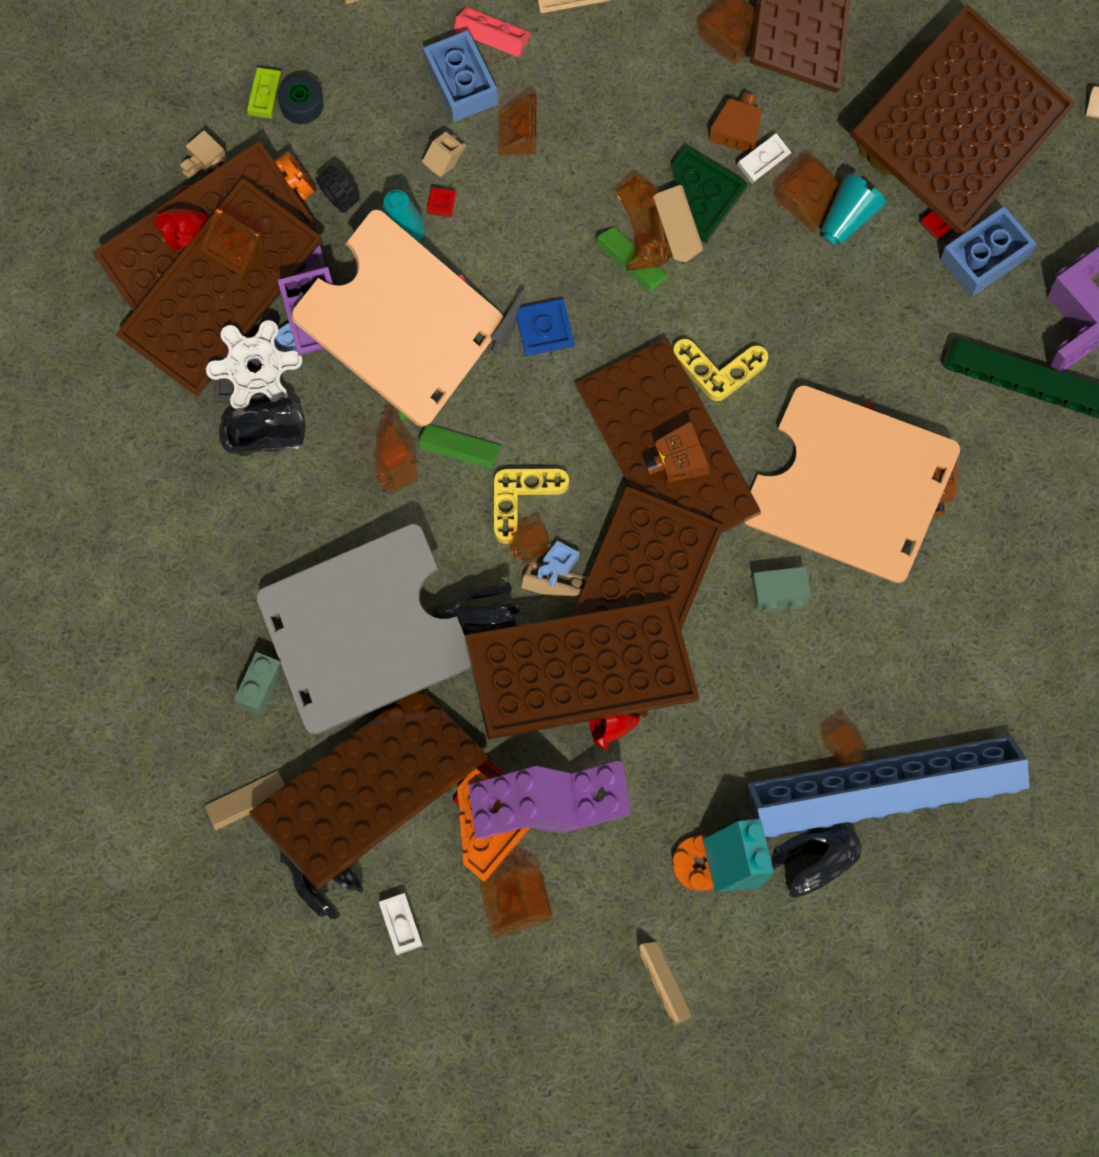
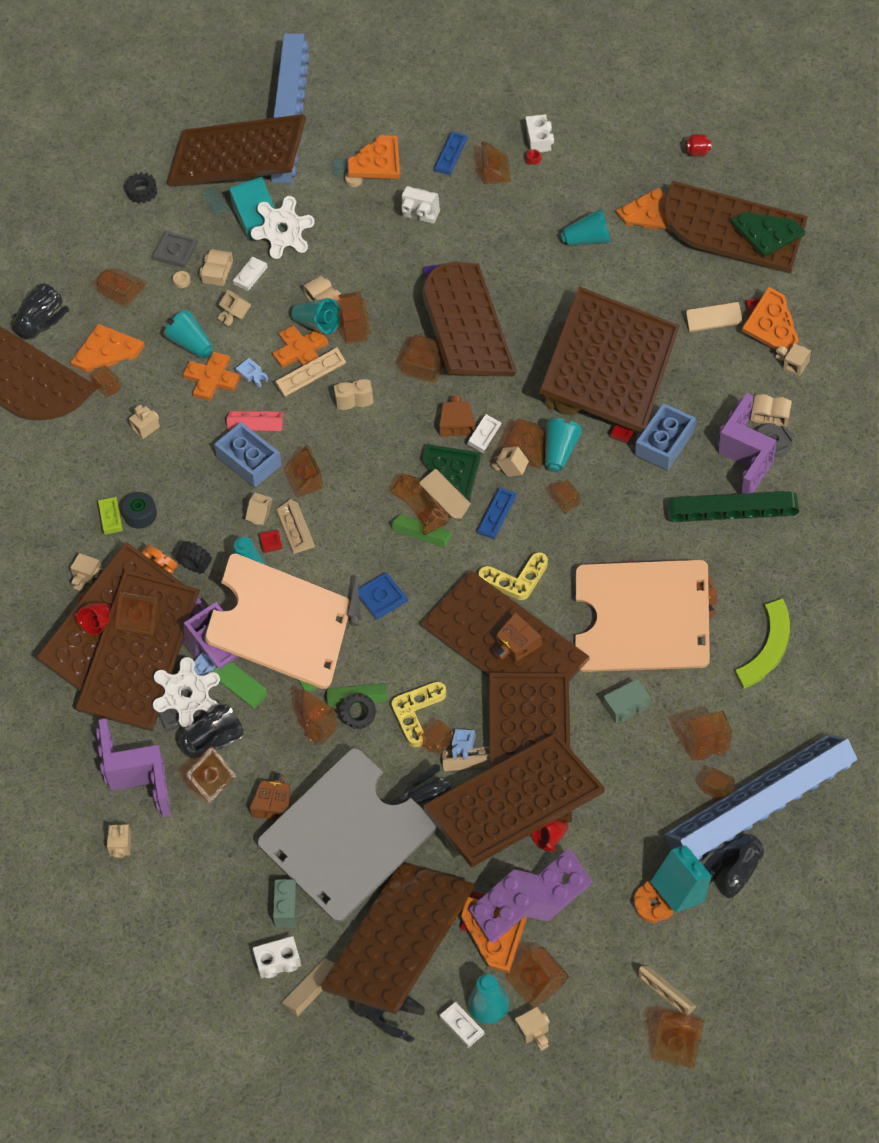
camera: 20 degrees left, 15 degrees down
(100, 523) = (119, 840): none -> tan brick
(152, 437) = (133, 767): none -> medium lavender bracket
(222, 741) = (275, 951): none -> white brick
(239, 482) = (209, 775): none -> clear orange slope
(300, 542) = (271, 799): none -> dark orange torso
(328, 380) = (242, 684): none -> bright green slope
(438, 482) = (360, 698): none -> black tyre
(444, 908) = (488, 1000): none -> teal cone
(480, 193) = (295, 526): none -> tan slope
(482, 962) = (533, 1027): none -> tan brick
(624, 43) = (353, 394): none -> tan brick
(649, 1051) = (678, 1038): none -> clear orange slope
(733, 272) = (497, 513): none -> blue tile
(779, 211) = (511, 461): none -> tan brick
(827, 282) = (565, 496): none -> clear orange brick
(859, 678) = (707, 736): none -> clear orange brick
(995, 592) = (774, 648): none -> lime tile

